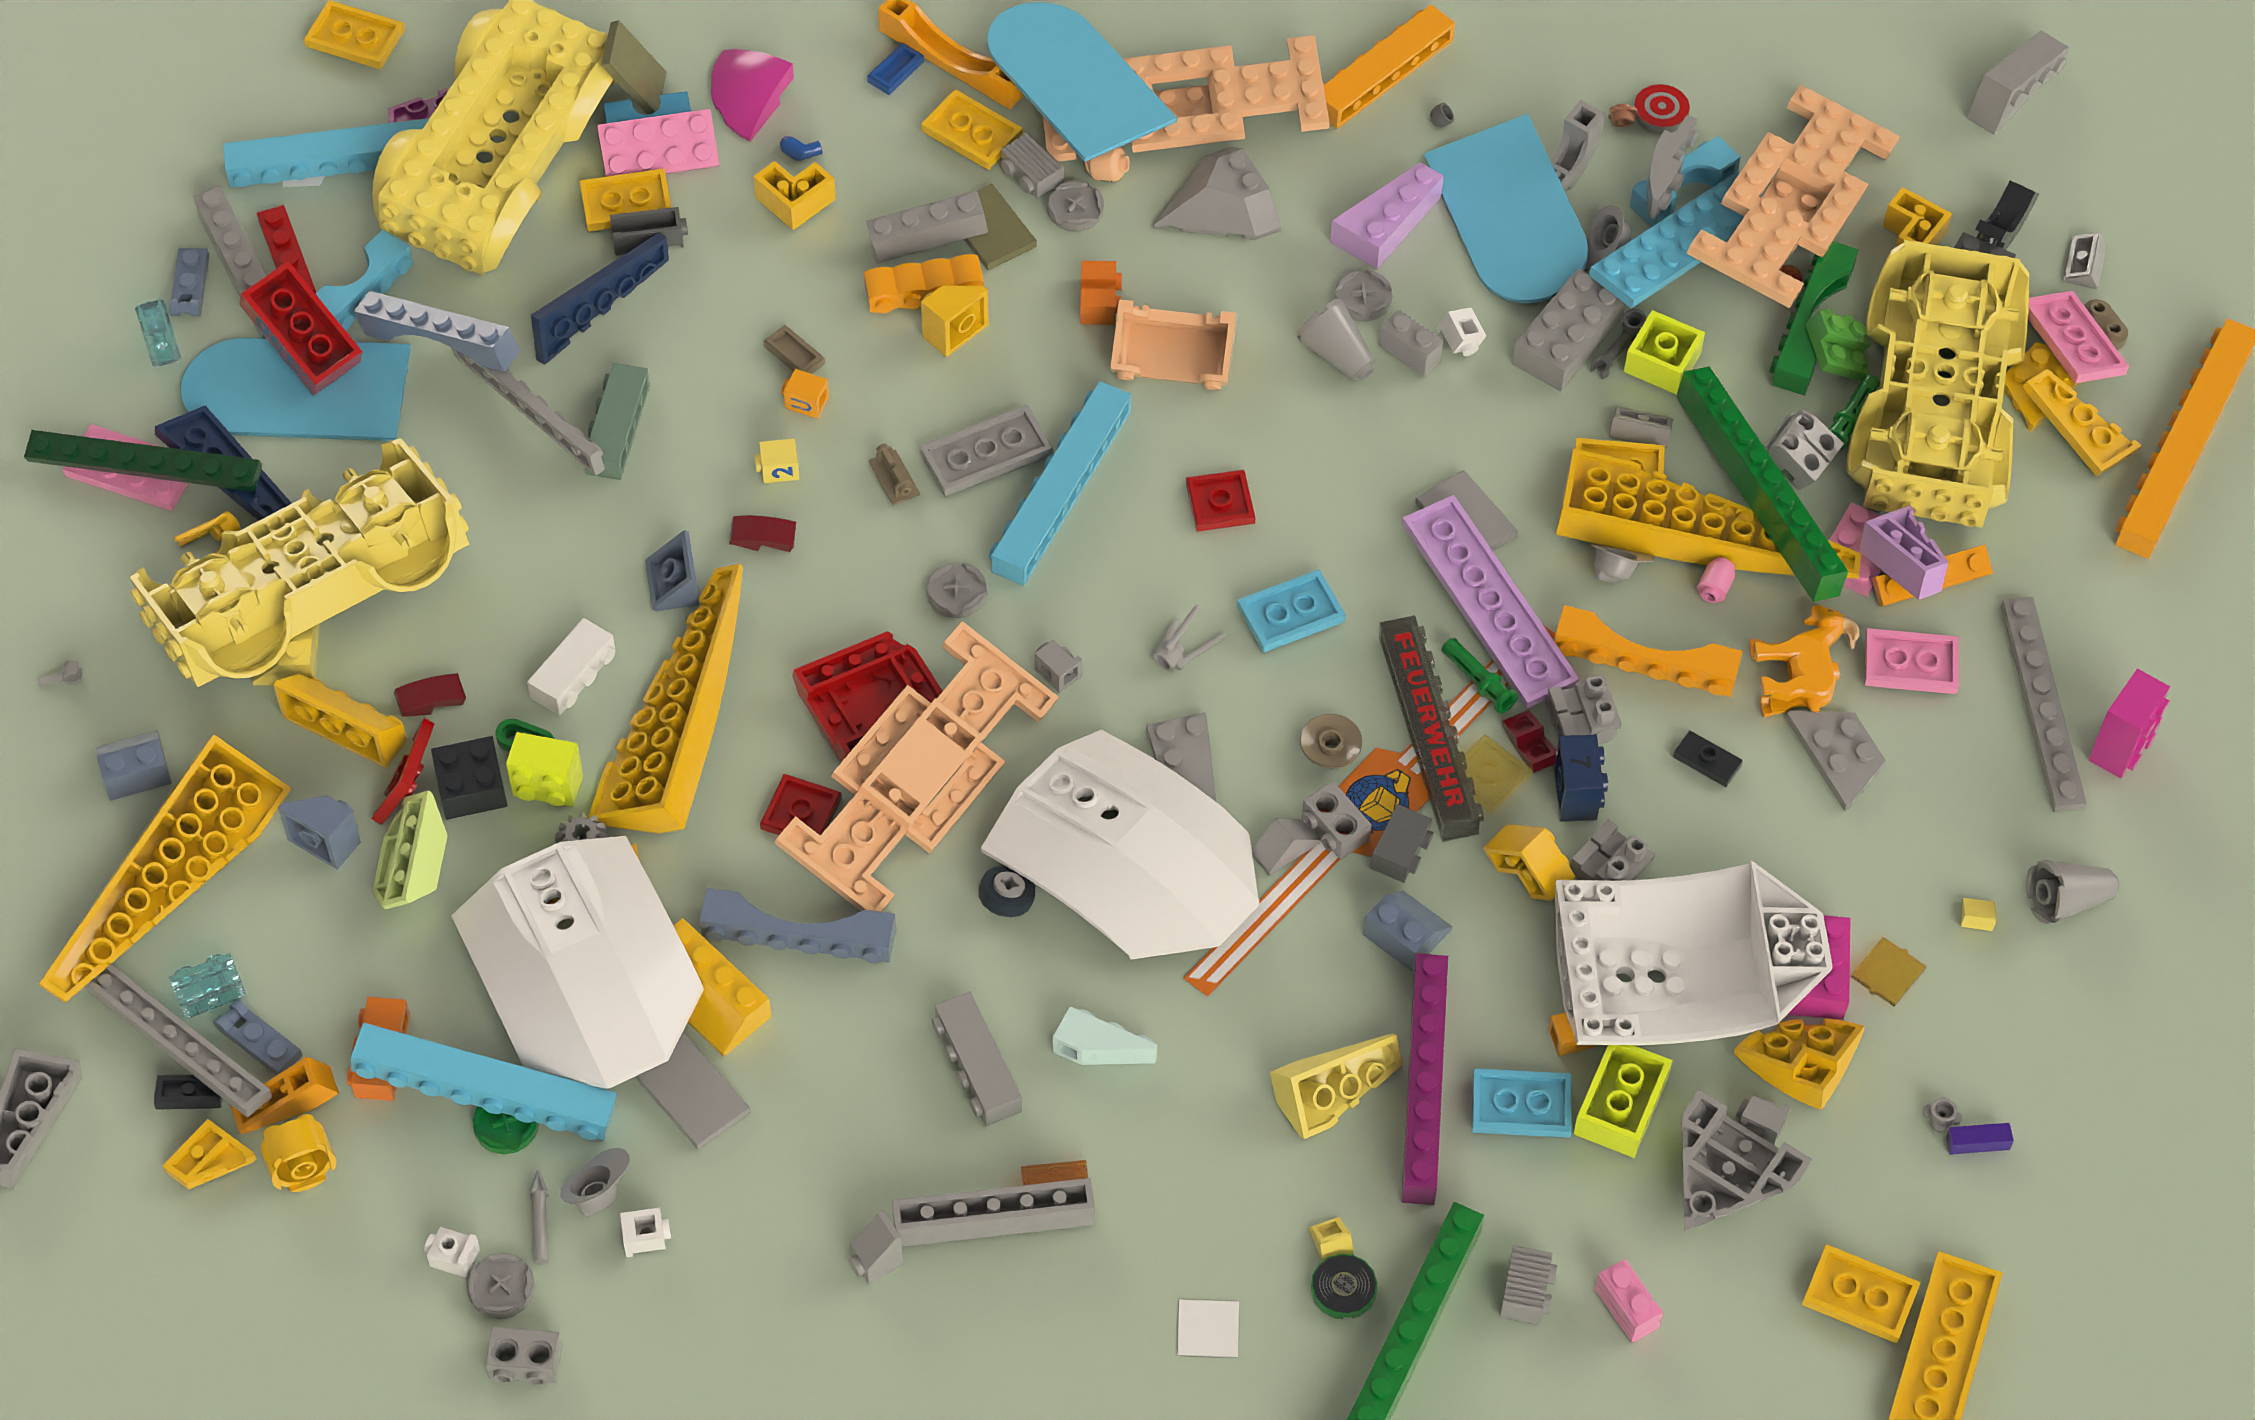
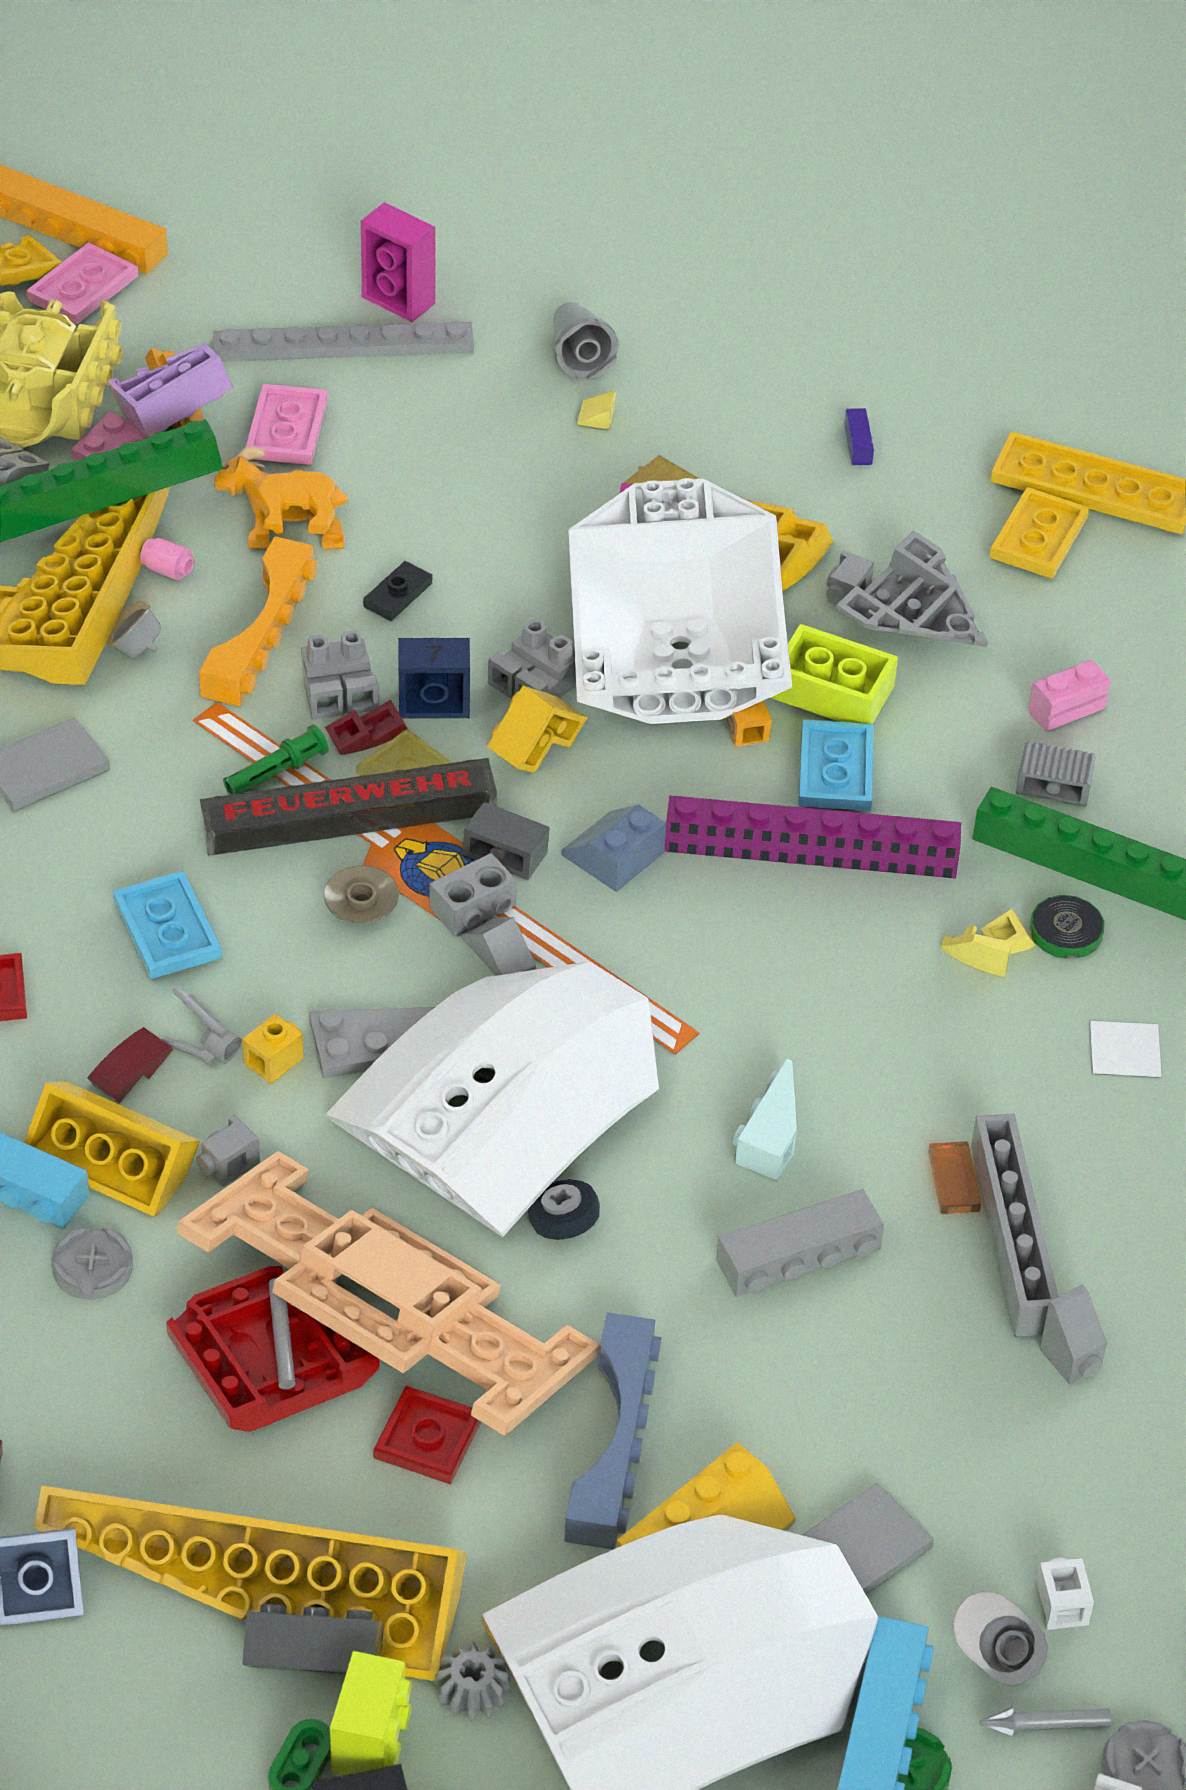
camera: 90 degrees left, 10 degrees down
(571, 667) = (183, 1703): white brick -> none
(609, 737) = (309, 1640): none -> dark grey brick
(863, 704) = (282, 1340): none -> light grey bar
(1061, 587) = (119, 1148): none -> yellow slope
(1148, 597) = (128, 1062): none -> dark red slope
(1162, 688) = (273, 1048): none -> yellow brick
(1309, 1199) = (979, 951): none -> light yellow slope
(1327, 1084) = (819, 923): light yellow wedge -> none
(1489, 600) = (172, 744): lavender plate -> none
(1839, 751) = (396, 491): light grey wing -> none
(1945, 1106) = (832, 458): light grey plate -> none
(2080, 491) = (83, 281): none -> bright pink plate

